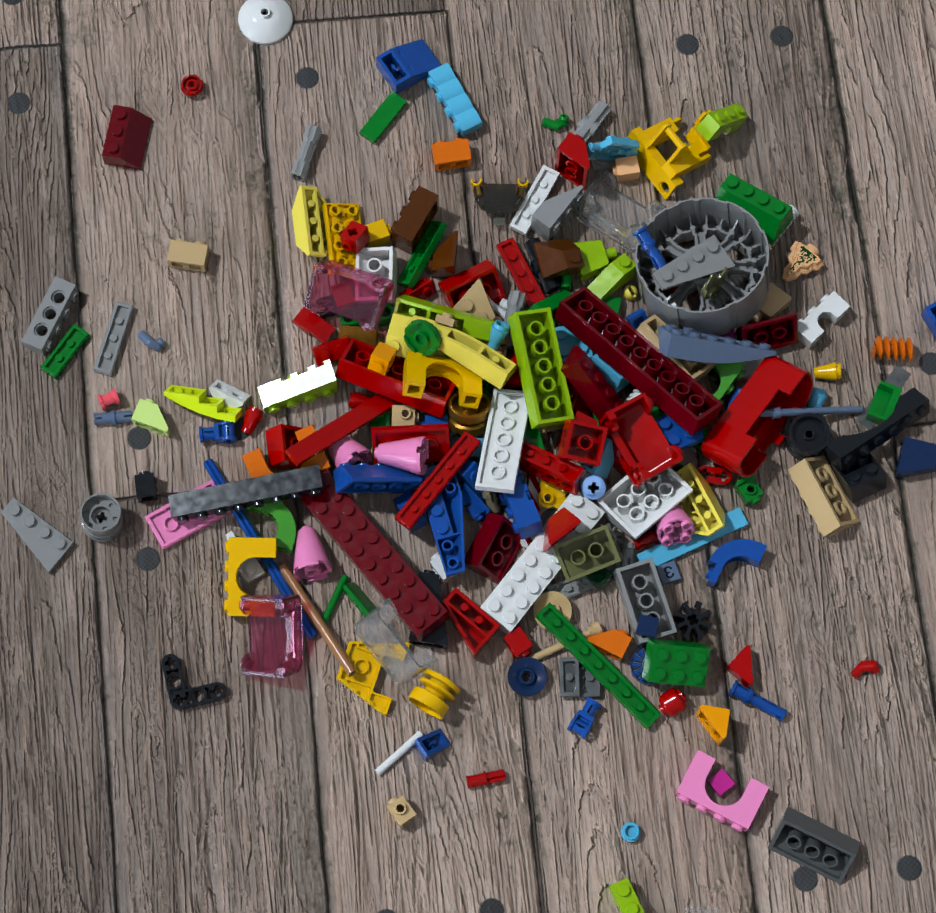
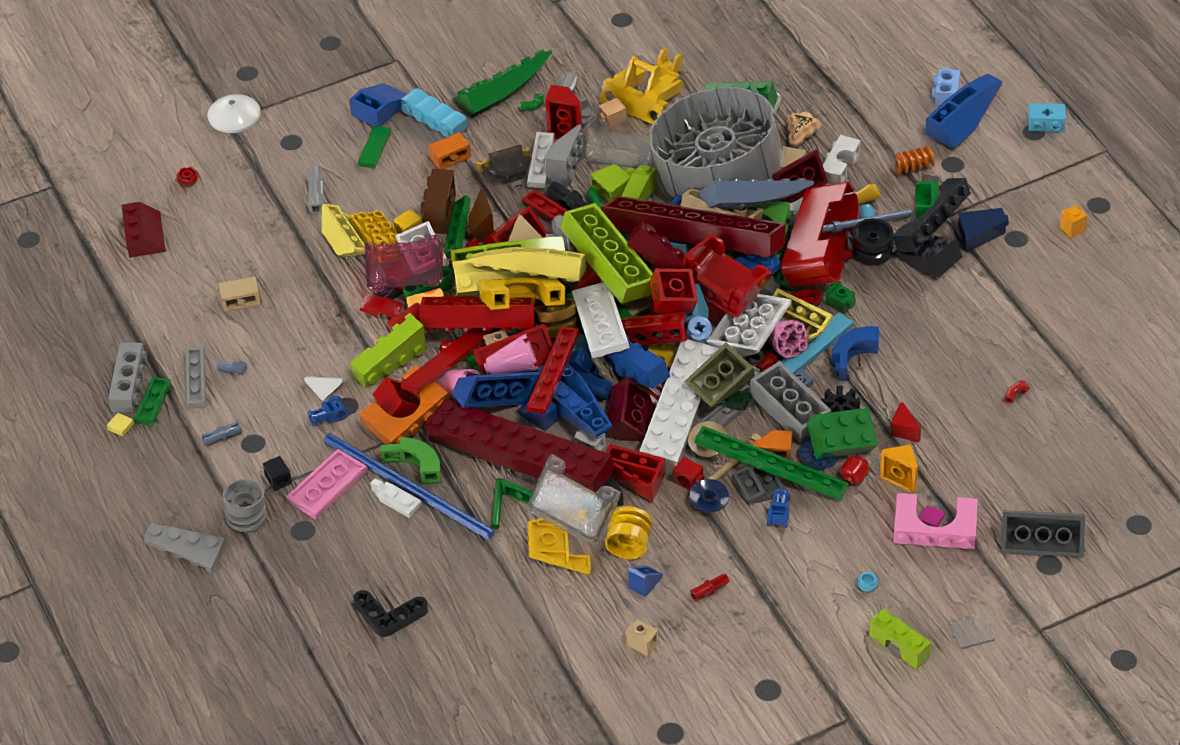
camera: 15 degrees left, 25 degrees down
(26, 368) = (120, 424): none -> light yellow tile
(109, 399) = (211, 420): coral bush -> none
(148, 416) = (259, 421): yellowish green slope -> none
(197, 401) = (298, 393): neon yellow slope -> none
(239, 551) = (408, 527): yellow arch -> none
(247, 493) = (377, 437): black brick -> none
(251, 420) = (355, 392): red cone -> none
(273, 635) = (451, 535): clear pink windscreen -> none
(310, 557) = (461, 473): bright pink cone -> none
(317, 620) = (491, 517): medium nougat piece -> none
(354, 237) = (390, 225): red brick -> none
(382, 358) = (459, 293): light orange brick -> none
(397, 754) = (615, 599): white bar -> none
(422, 337) = (489, 261): green tile -> none
(446, 319) = (504, 242): tan plate -> none
(498, 332) = (557, 240): medium azure cone -> none
(532, 88) = (500, 85): none -> green wedge
(558, 258) = (585, 186): reddish brown slope -> none
(559, 527) = (684, 361): red slope -> none
(613, 148) = (594, 93): medium azure plate -> none
(627, 294) = (660, 196): light yellow hinge -> none
(647, 626) = (801, 412): dark blue tile -> none
(648, 245) = (661, 135): blue pin -> none
(694, 264) = (708, 134): light grey wing -> none
(711, 287) = (733, 143): olive plate -> none
(724, 119) = (681, 49): lime arch -> none
(748, 696) = (922, 444): blue pin -> none
(823, 495) = (909, 280): tan slope -> none

